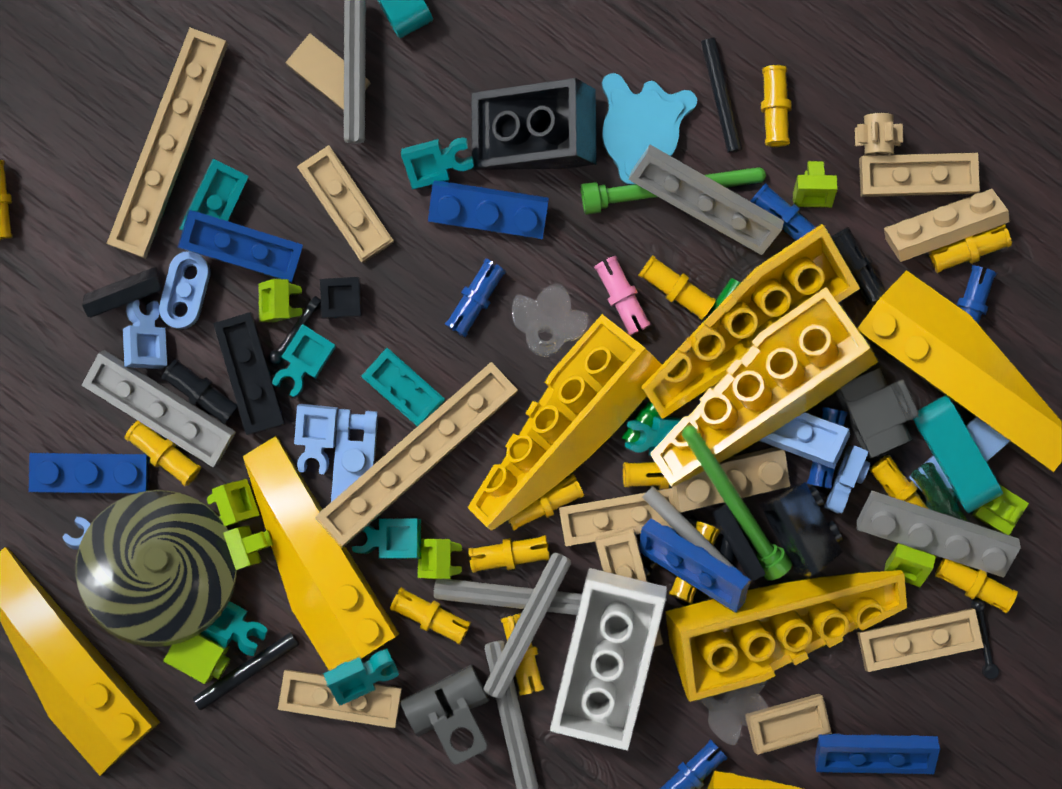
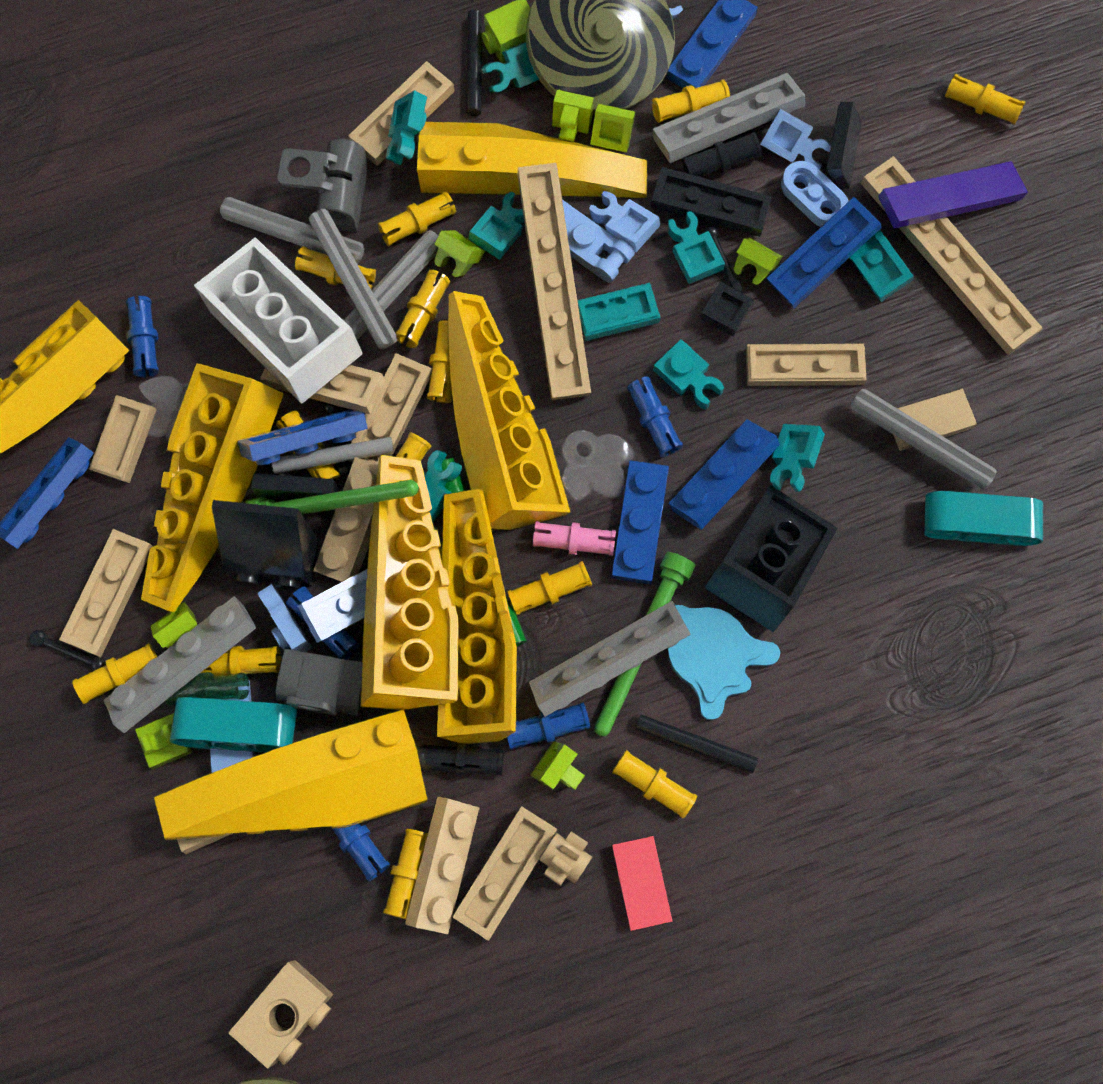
camera: 125 degrees right, 10 degrees down
(113, 171) = (952, 194): none -> dark purple tile
(417, 301) = (685, 370): none -> teal plate
(572, 252) = (640, 522): none -> blue plate
(855, 69) = (642, 883): none -> coral tile

